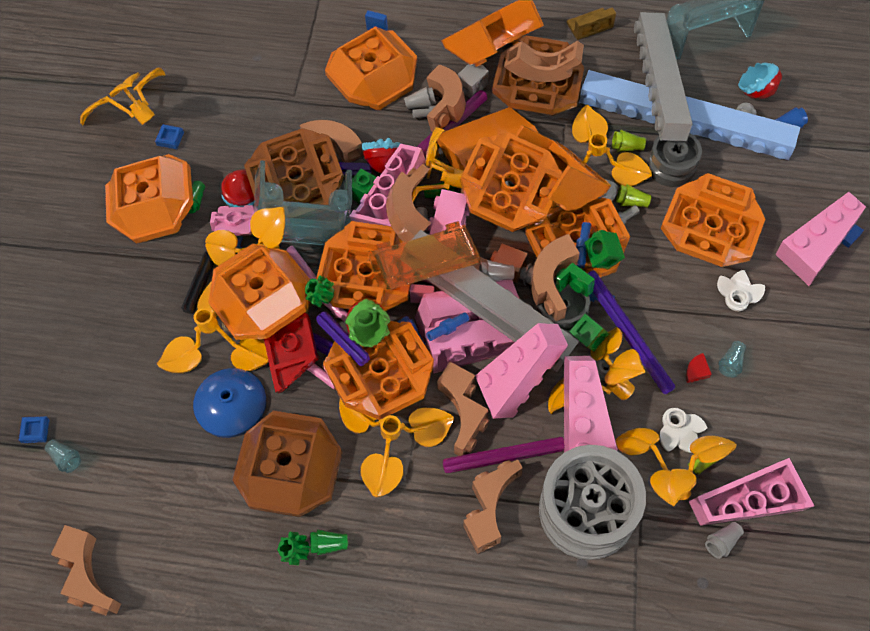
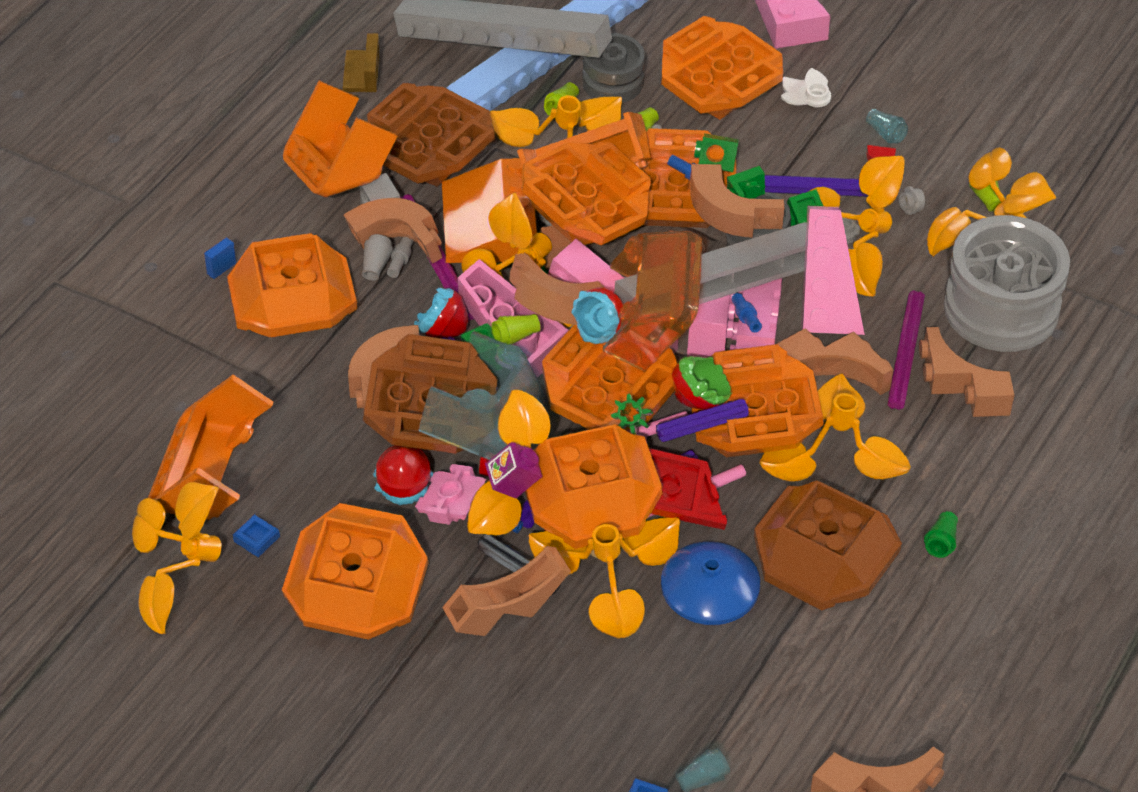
camera: 70 degrees left, 15 degrees down
(156, 282) = (522, 593): none -> nougat arch
(205, 84) = (205, 443): none -> orange windscreen
(236, 240) = (513, 470): none -> magenta brick
(293, 548) = (948, 560): green gear -> none
(367, 192) = (515, 328): none -> lime cone
(392, 230) = (597, 314): none -> medium azure hair
(541, 66) = (432, 108): nougat arch -> none
(584, 405) = (901, 243): bright pink wedge -> none
(659, 405) = (912, 200): none -> light grey plate
(682, 433) = (944, 195): white plate -> none
(722, 541) = (1084, 212): light grey cone -> none
(760, 494) = (1051, 150): bright pink wedge -> none

